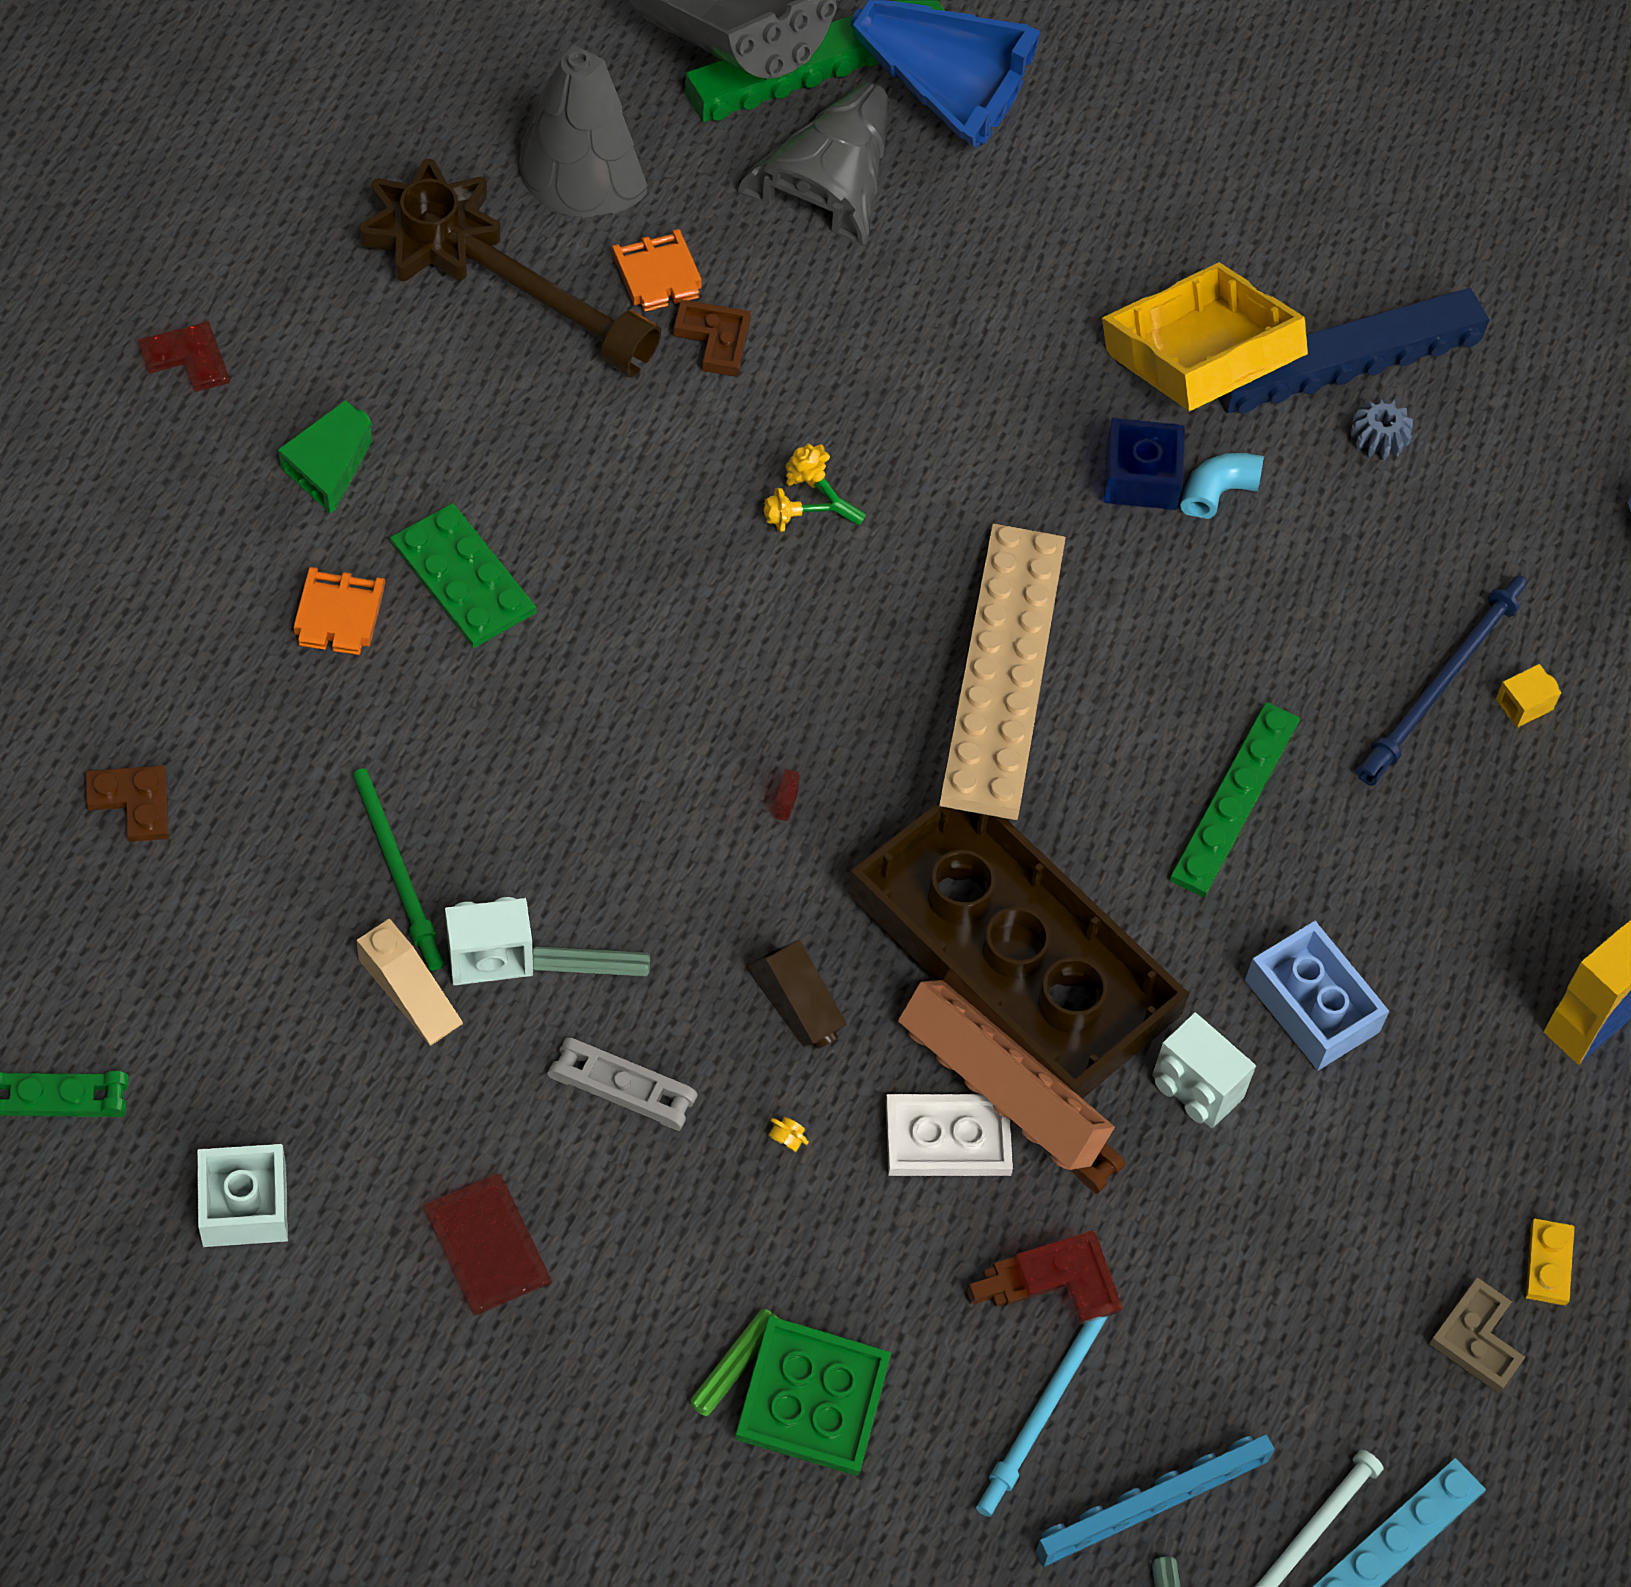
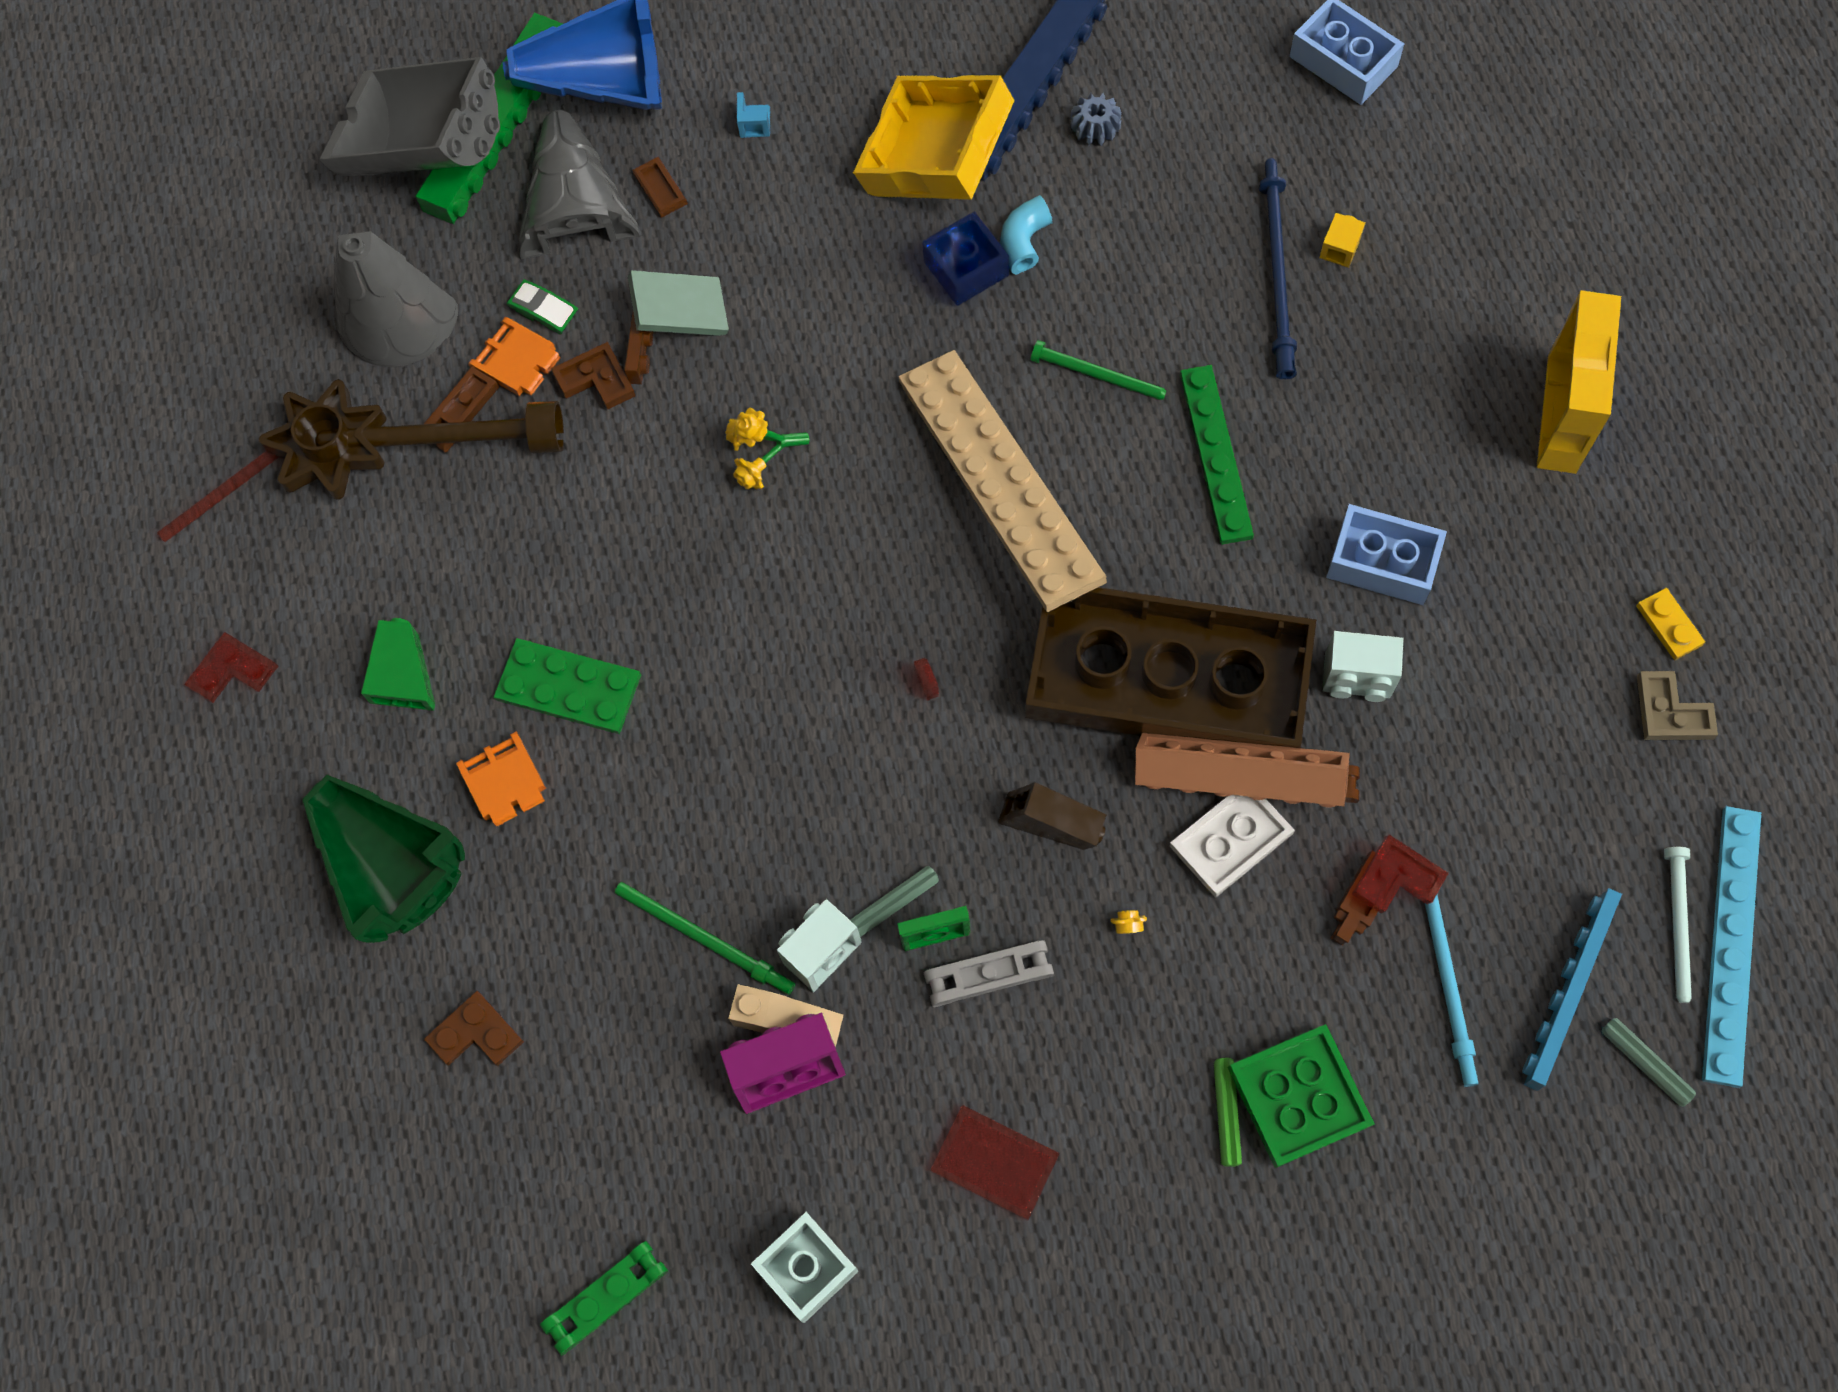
camera: 25 degrees left, 10 degrees up
(177, 597) = (381, 859): none -> dark green cone
(299, 206) = (216, 495): none -> clear red bar
(371, 1014) = (782, 1062): none -> magenta slope
(581, 275) = (464, 401): none -> reddish brown plate
(603, 1002) = (934, 928): none -> green tile
(721, 243) = (542, 305): none -> slope
(782, 329) = (637, 361): none -> reddish brown plate
(842, 321) = (677, 303): none -> sand green tile
(917, 215) = (659, 187): none -> reddish brown tile
(1052, 213) = (752, 119): none -> dark azure panel
(1145, 594) = (1087, 368): none -> green bar

